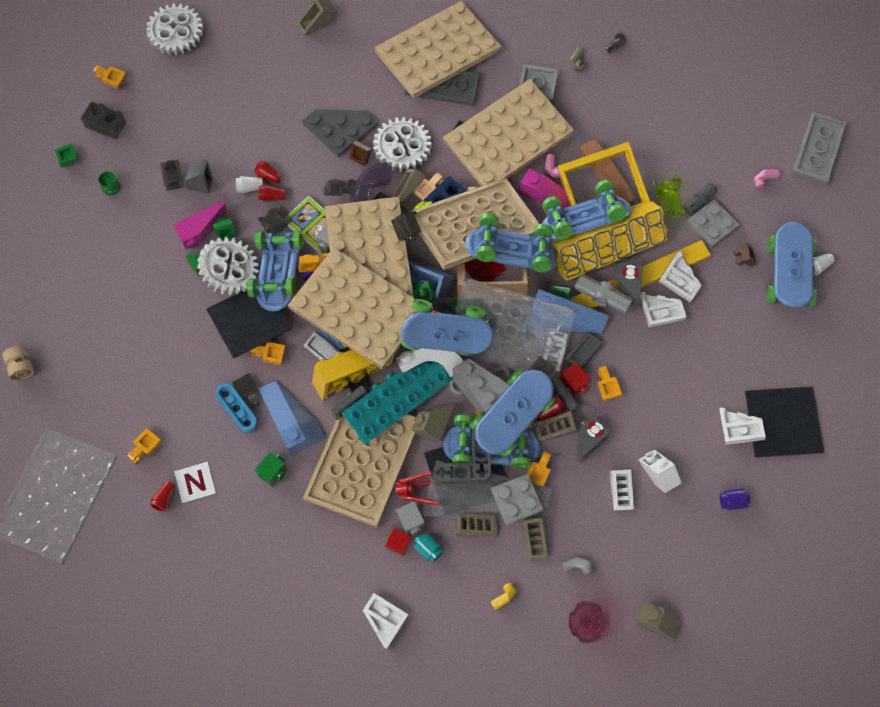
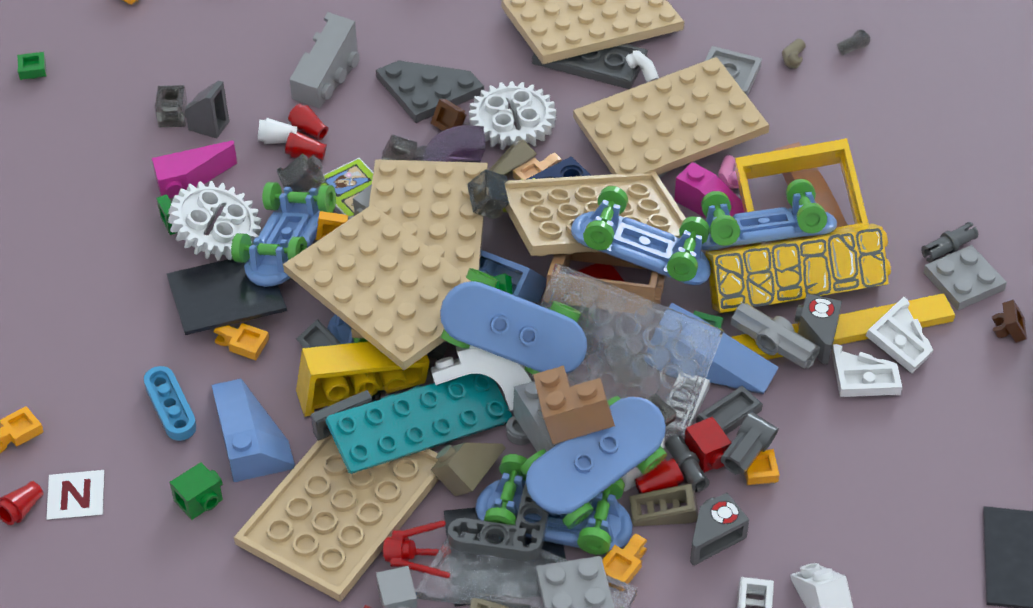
camera: 10 degrees right, 20 degrees down
(102, 123) = (97, 32): clear smoke brick -> none
(108, 183) = (78, 103): green wheel -> none
(224, 228) = (225, 174): green tile -> none
(246, 389) = (195, 382): clear smoke plate -> none
(269, 123) = (327, 63): none -> light grey wedge
(482, 87) = (644, 63): none -> white arm
(494, 389) = (571, 409): none -> medium nougat brick
(603, 374) = (752, 438): none -> dark grey piece
(668, 195) = (902, 231): clear neon green hair -> none
(740, 427) = (969, 554): white wing -> none

